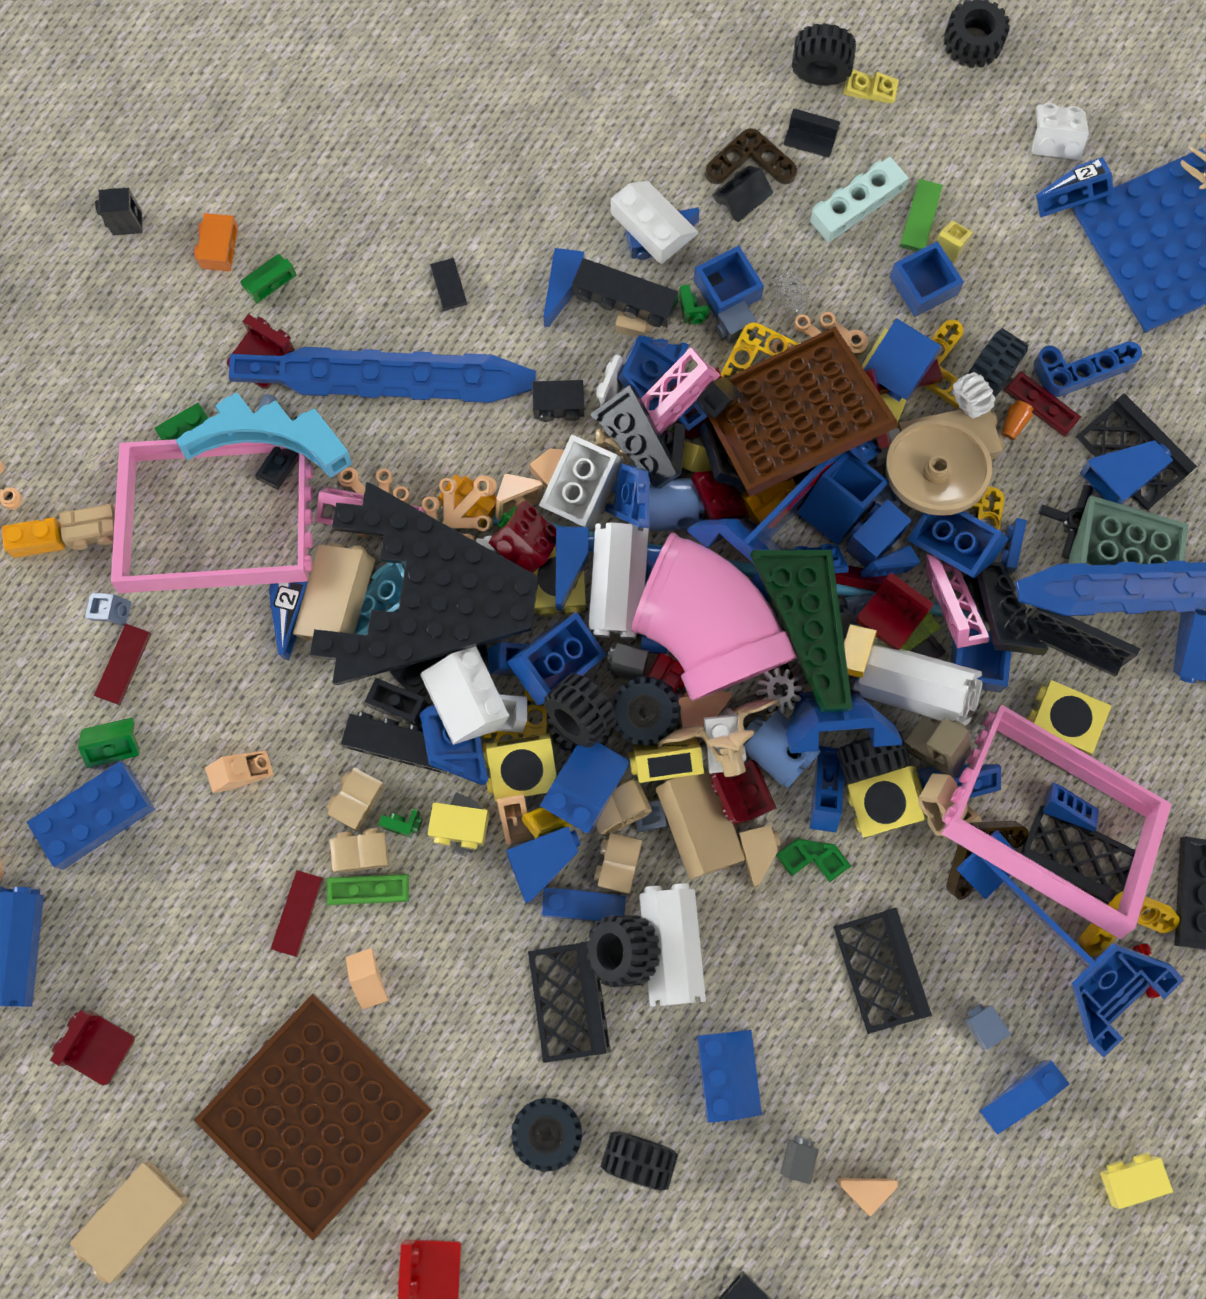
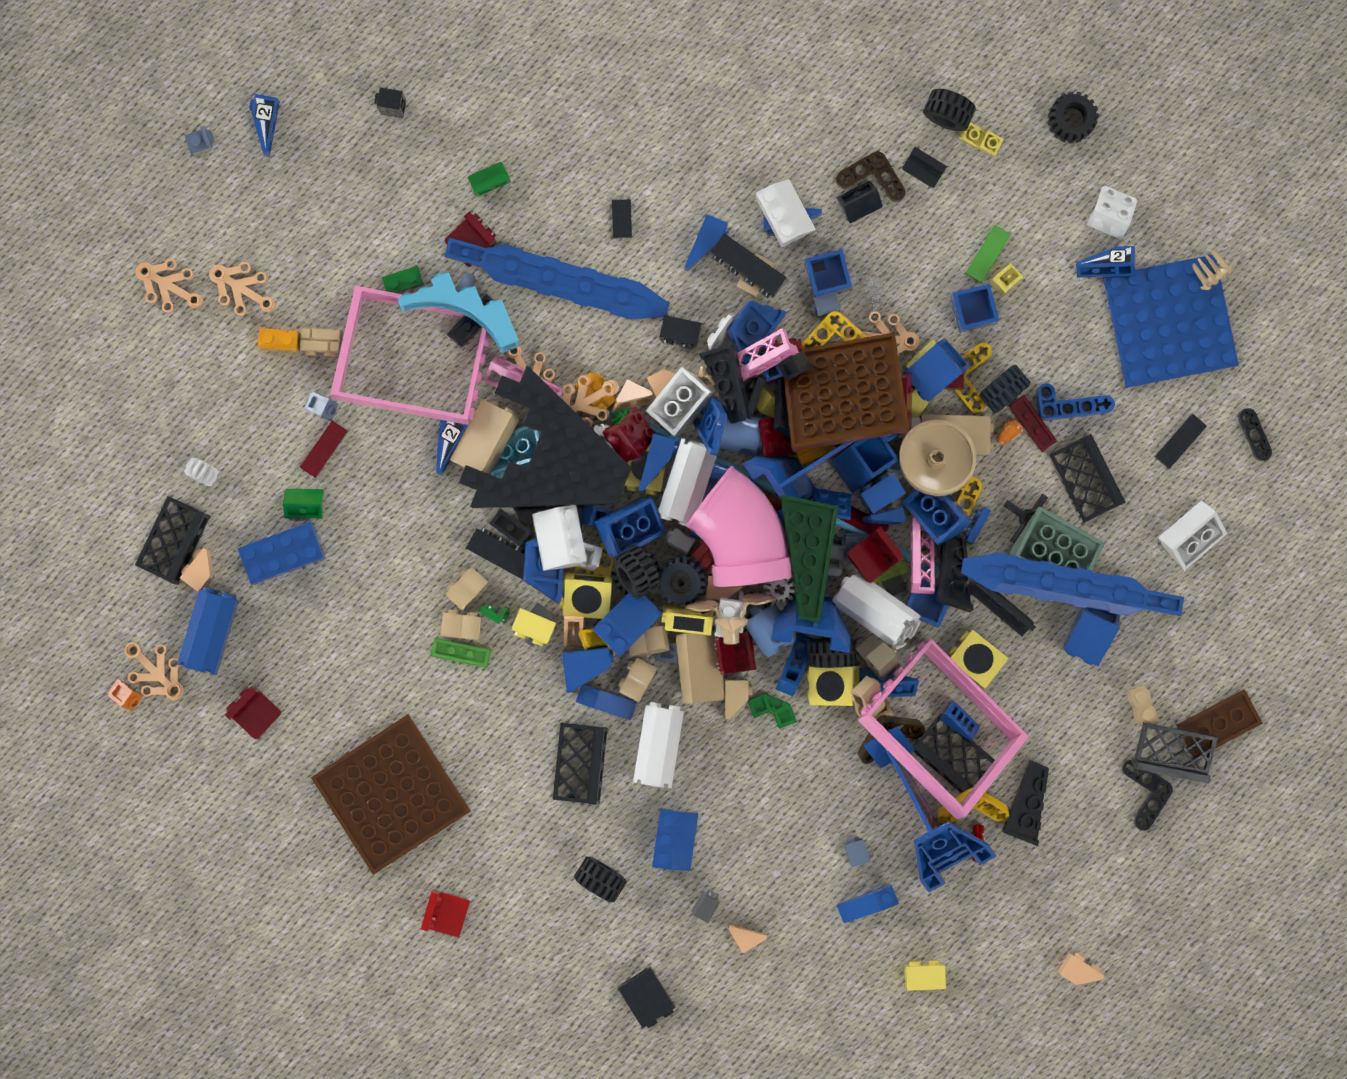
camera: 10 degrees right, 10 degrees up
(128, 1222) = (254, 832): tan brick -> none
(216, 242) = (457, 142): orange brick -> none
(238, 770) = (390, 547): light nougat slope -> none
(296, 913) = (408, 656): dark red tile -> none
(366, 979) = (446, 713): light nougat slope -> none
(546, 1134) = (543, 846): black wheel -> none
(623, 950) = (624, 741): black tyre -> none
(689, 307) = (795, 279): green bracket -> none
(858, 649) = (840, 577): yellow tile -> none
(884, 173) = (973, 223): light aqua brick -> none
(905, 962) = (814, 801): black fence -> none
(973, 395) = (978, 410): white gear -> none
(1126, 471) = (1073, 495): blue slope -> none

